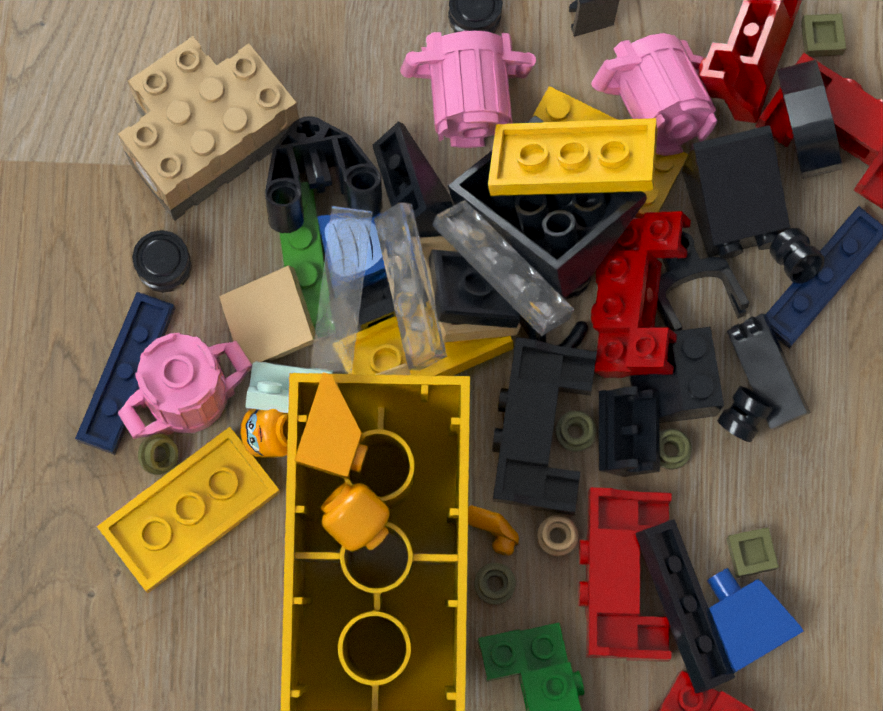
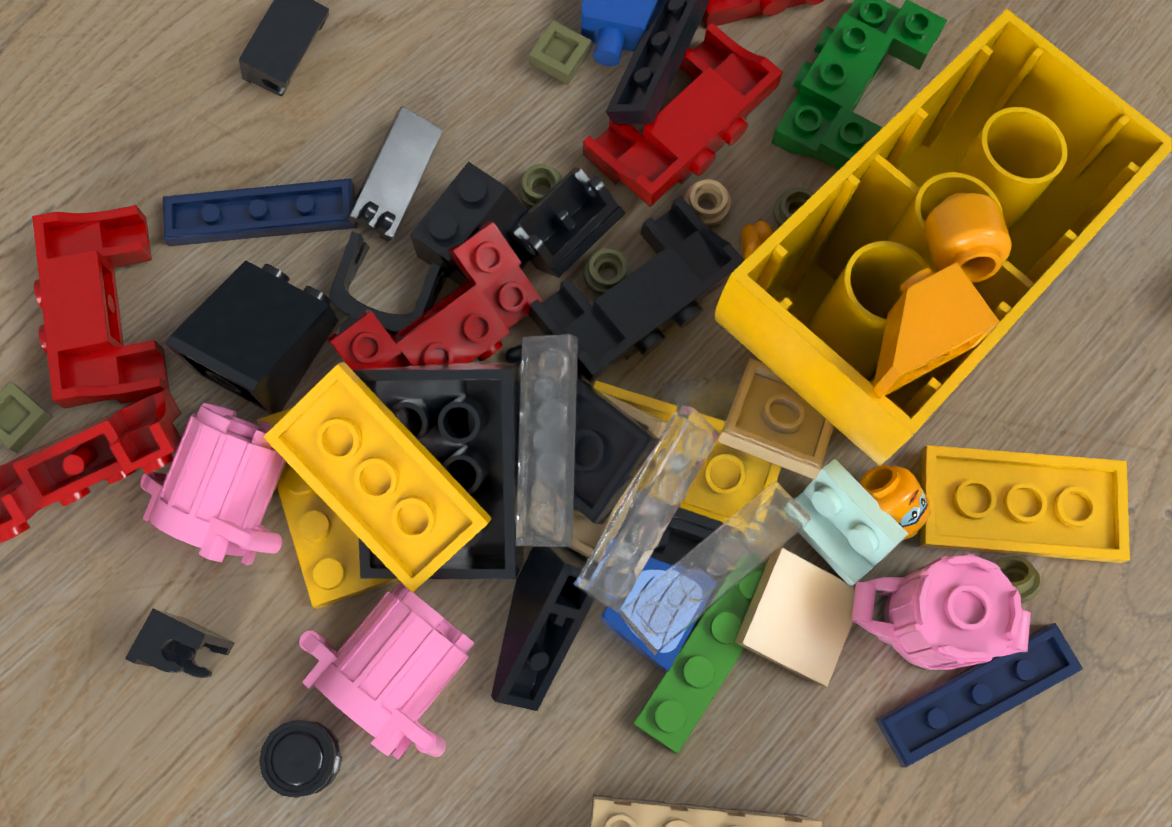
camera: 135 degrees left, 0 degrees up
(162, 261) = (856, 775): black wheel -> none
(313, 148) = (588, 739): black connector -> none
(745, 414) = (452, 151): black wheel -> none
(798, 257) = (266, 237): black wheel -> none
(810, 119) = (127, 297): black connector -> none

